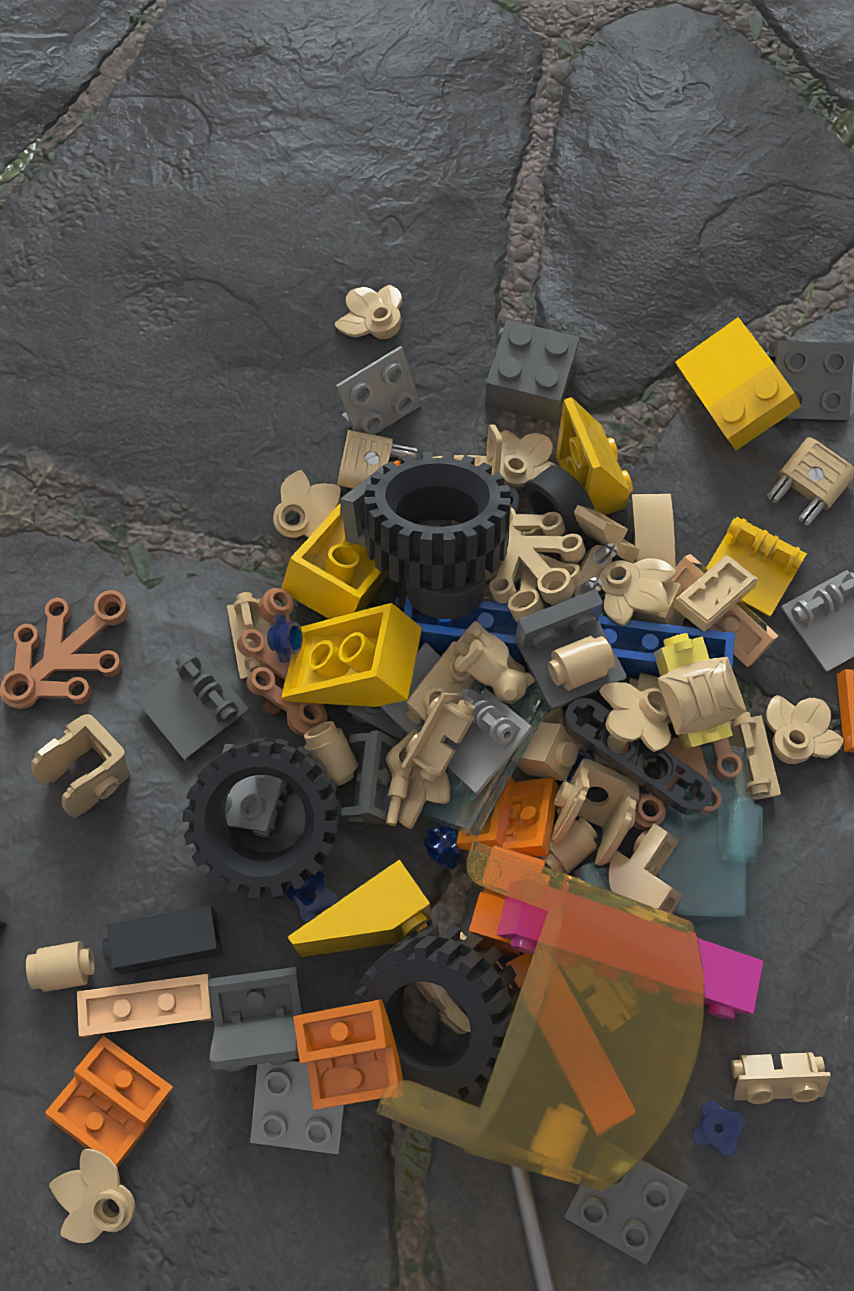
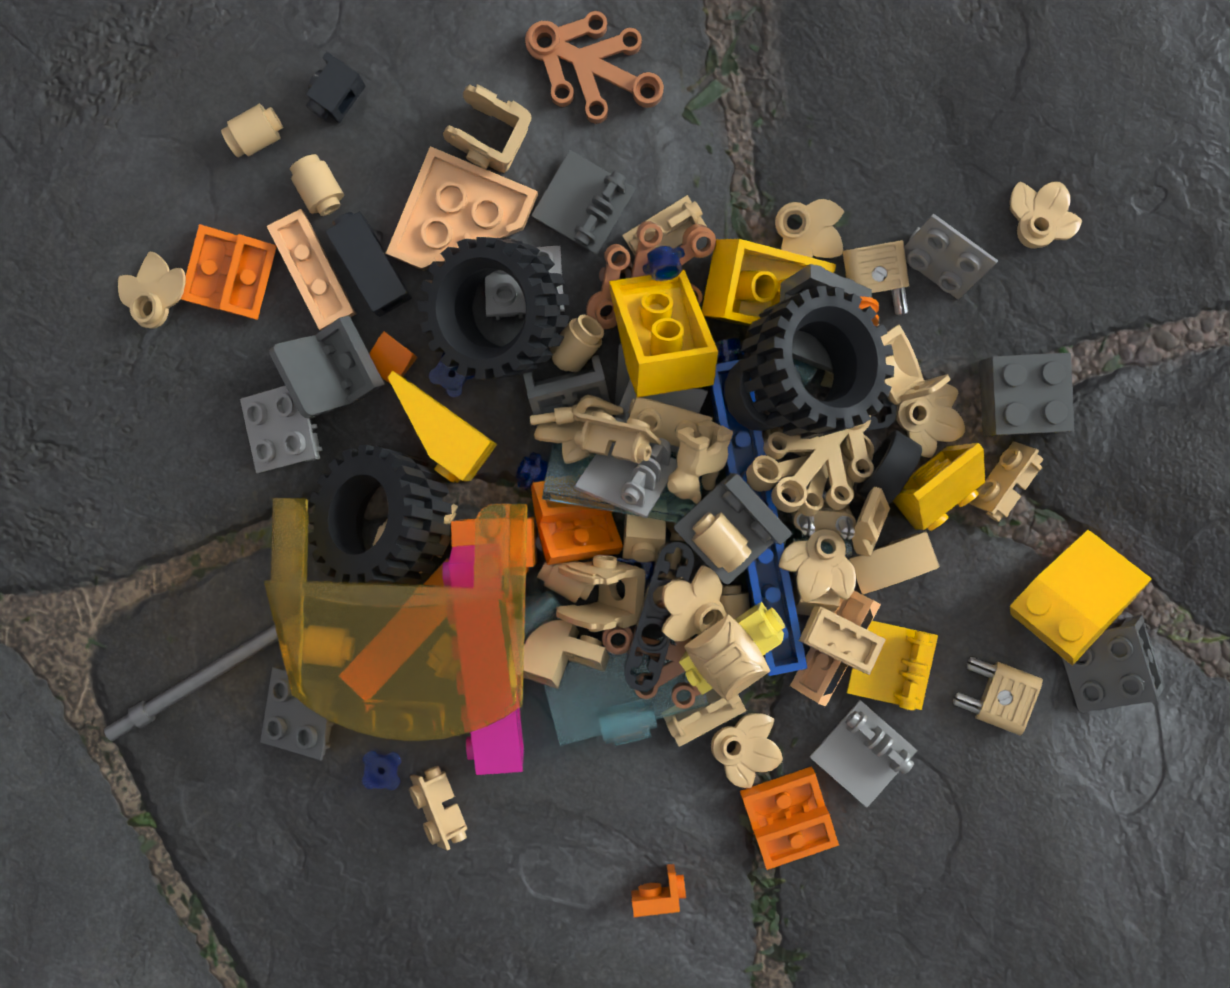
camera: 65 degrees right, 20 degrees up
(143, 832) = (454, 204): none -> light nougat plate
(270, 951) = (391, 356): none -> orange slope
(348, 1053) = (318, 457): orange slope -> none
(602, 406) = (1016, 466): none -> tan hinge

